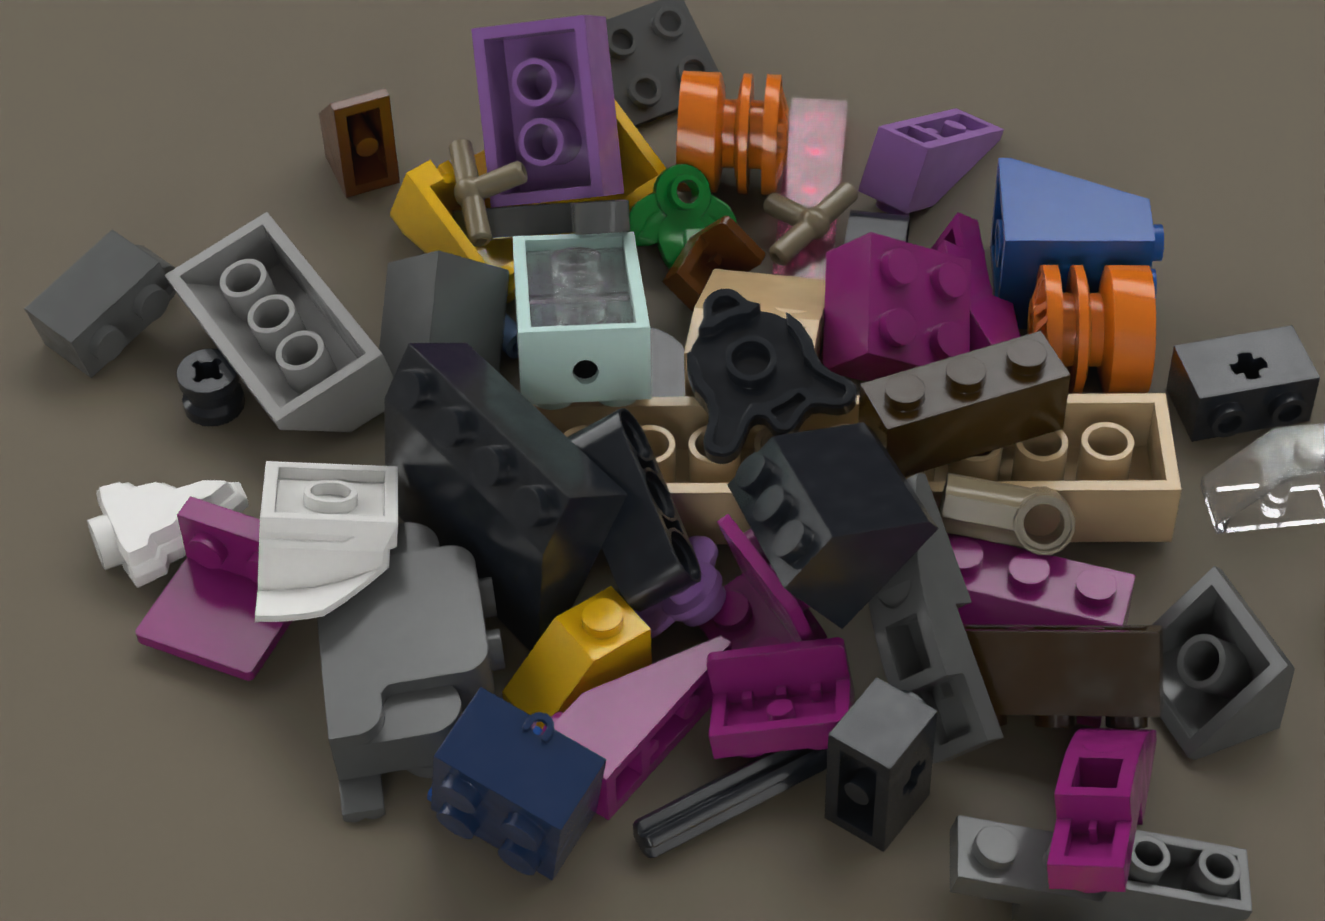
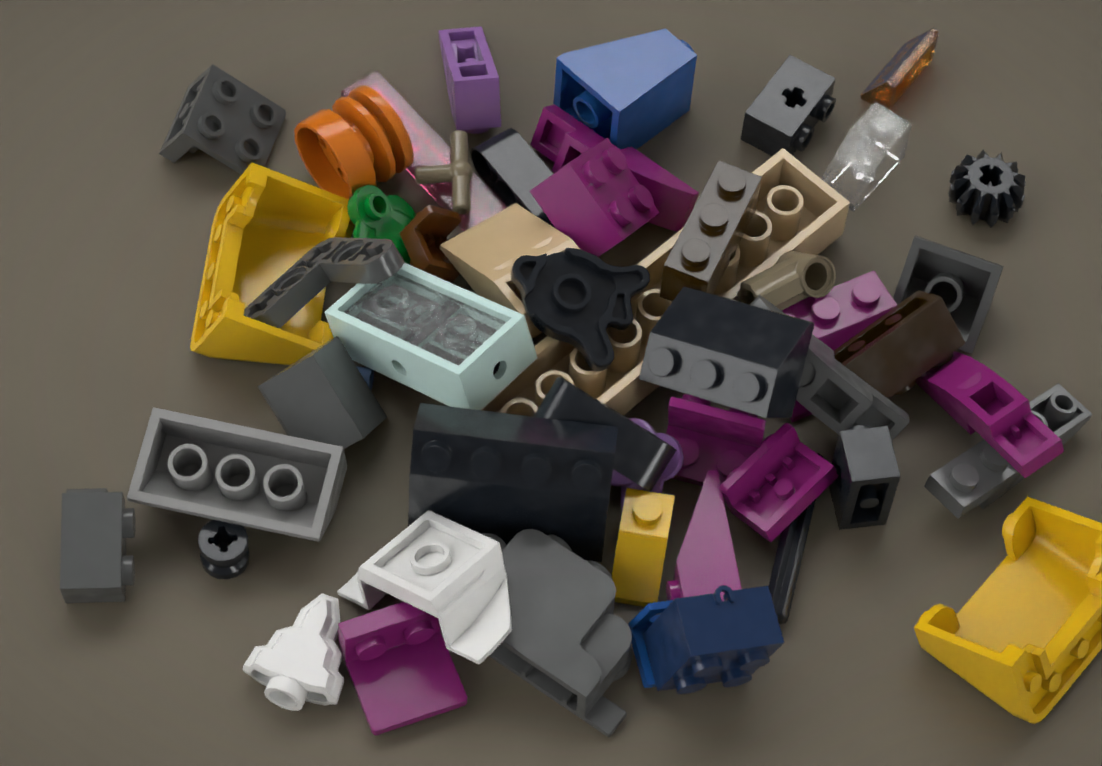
camera: 50 degrees left, 10 degrees up
(361, 142) = (118, 312): reddish brown slope -> none
(473, 189) = (260, 298): dark tan piece -> none
(550, 107) = (264, 211): medium lavender brick -> none
(1100, 328) = (696, 129): orange wheel -> none

